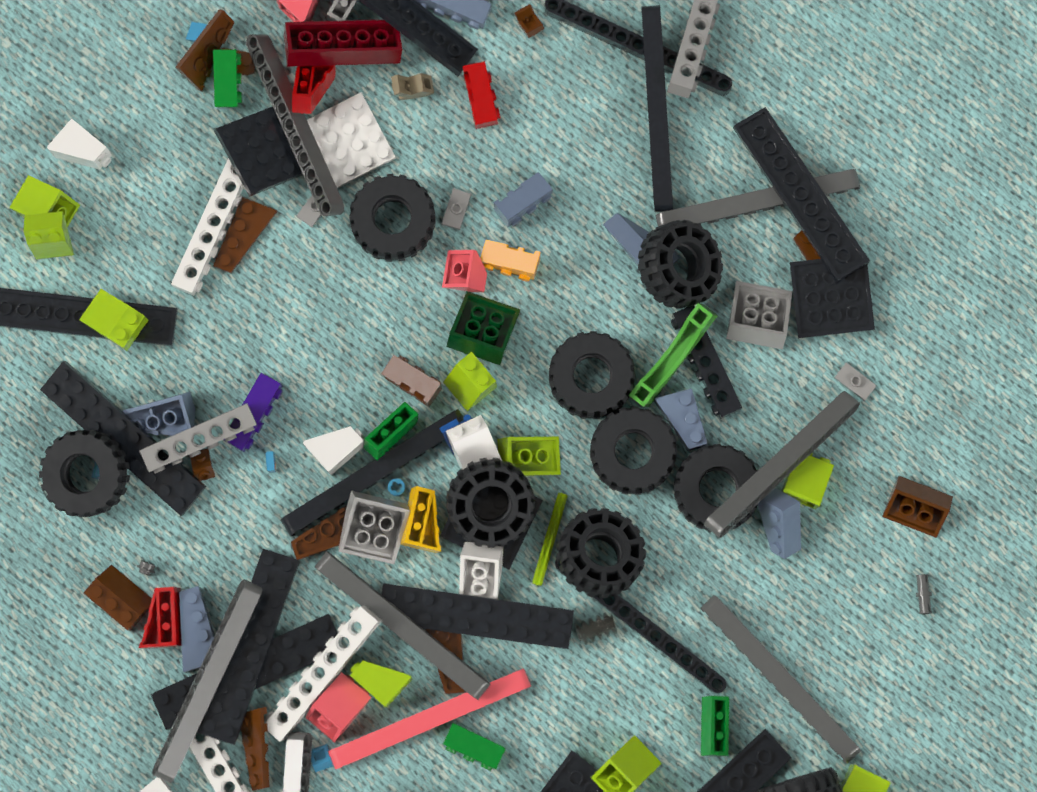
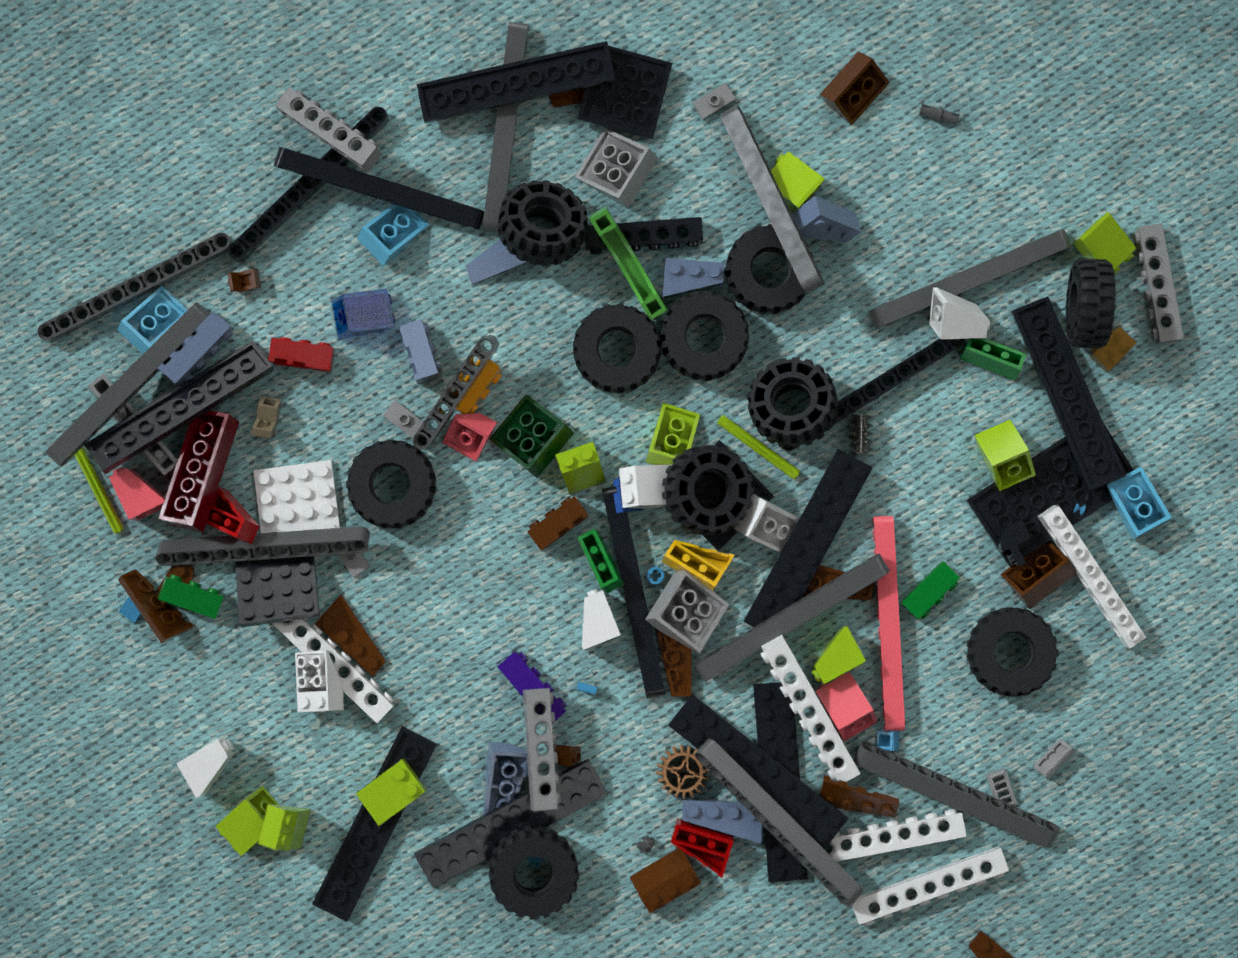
camera: 70 degrees left, 5 degrees up
(188, 217) = (317, 683): none -> white slope
(207, 578) = (678, 788): none -> medium nougat gear
(503, 246) = (449, 399): none -> dark grey beam
(539, 136) = (362, 313): none -> clear blue slope
(622, 135) = (391, 232): none -> medium azure slope
(738, 677) = (956, 317): none -> white slope

